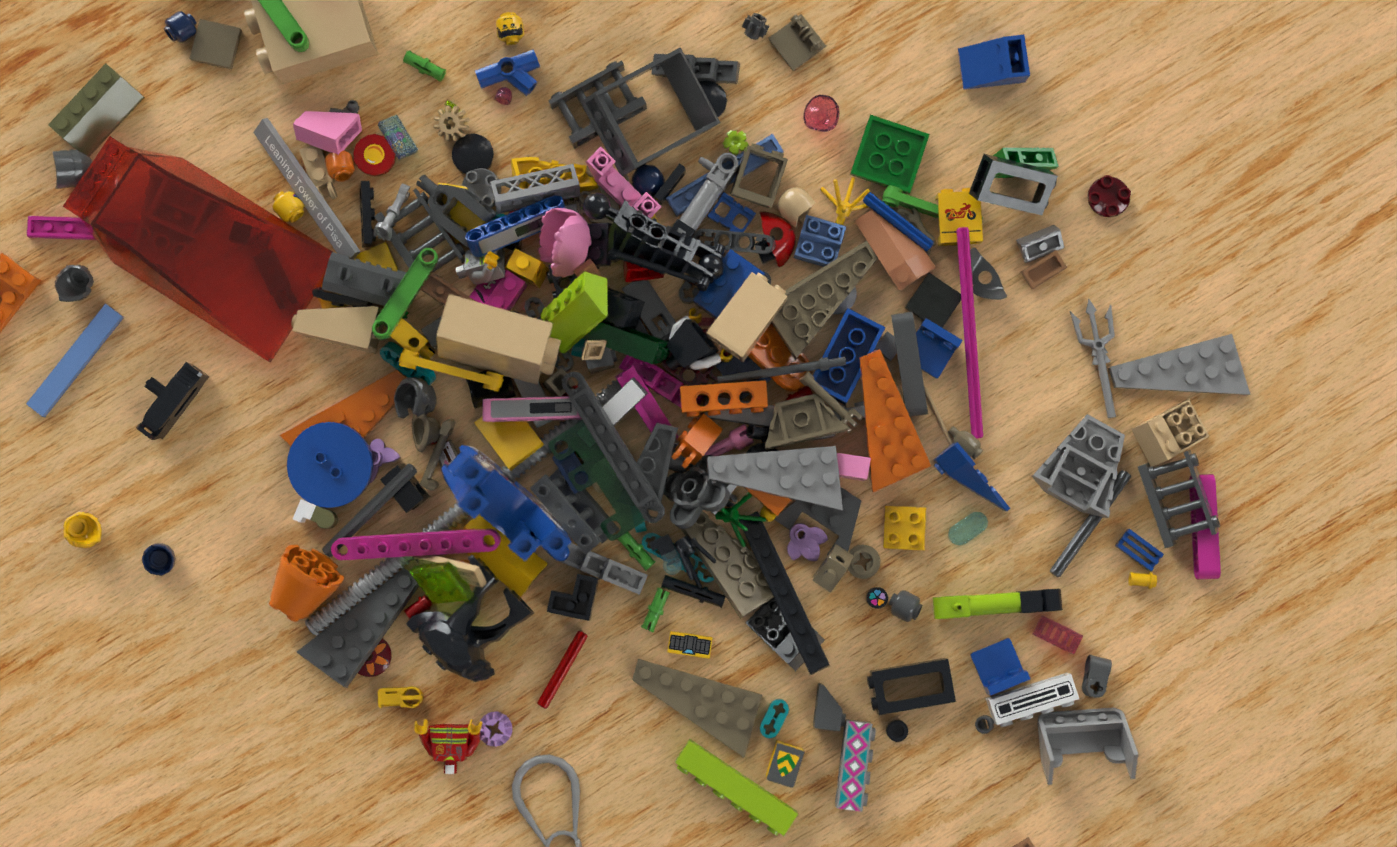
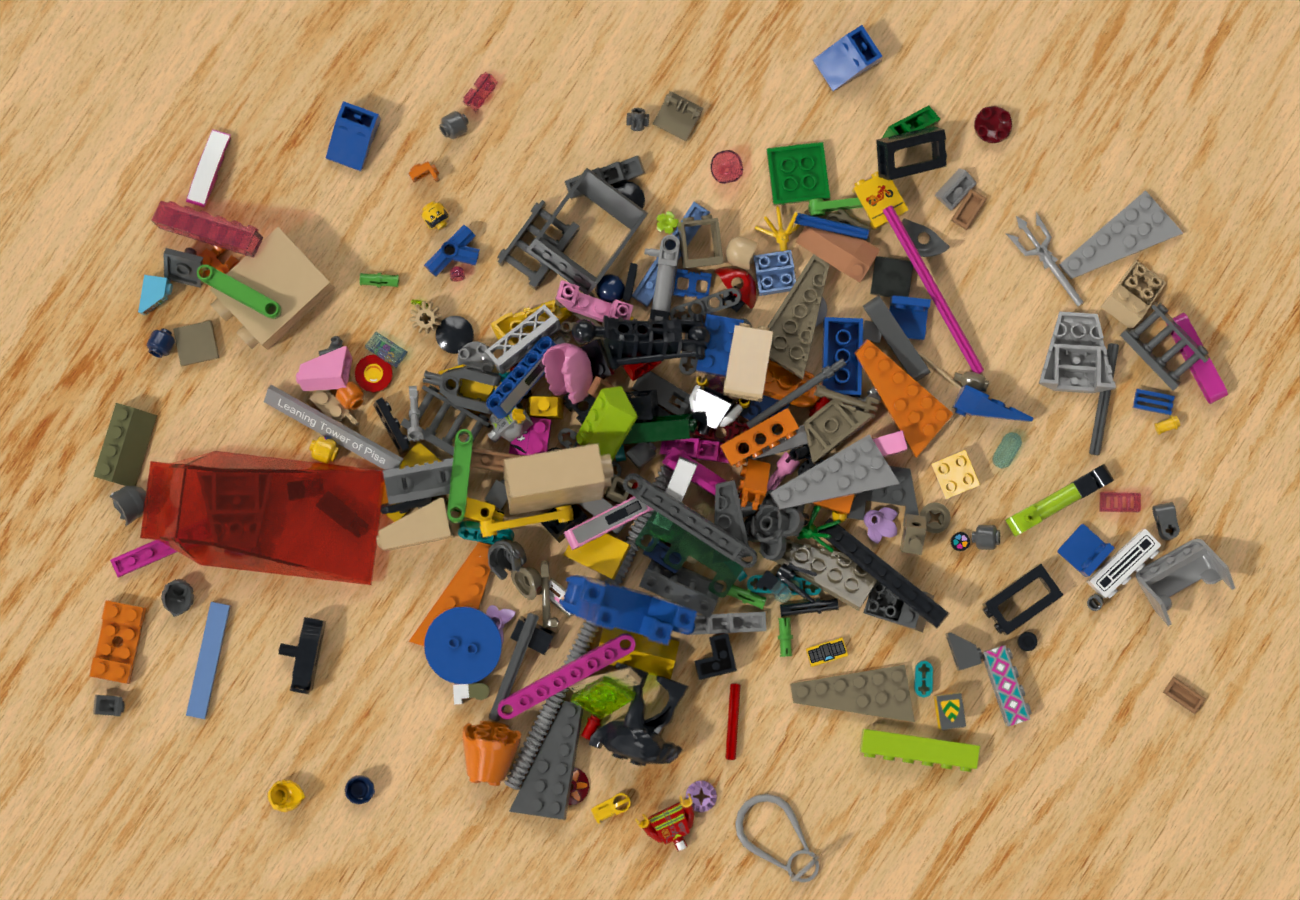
camera: 25 degrees left, 0 degrees up
(593, 350) = (636, 449): tan slope -> none

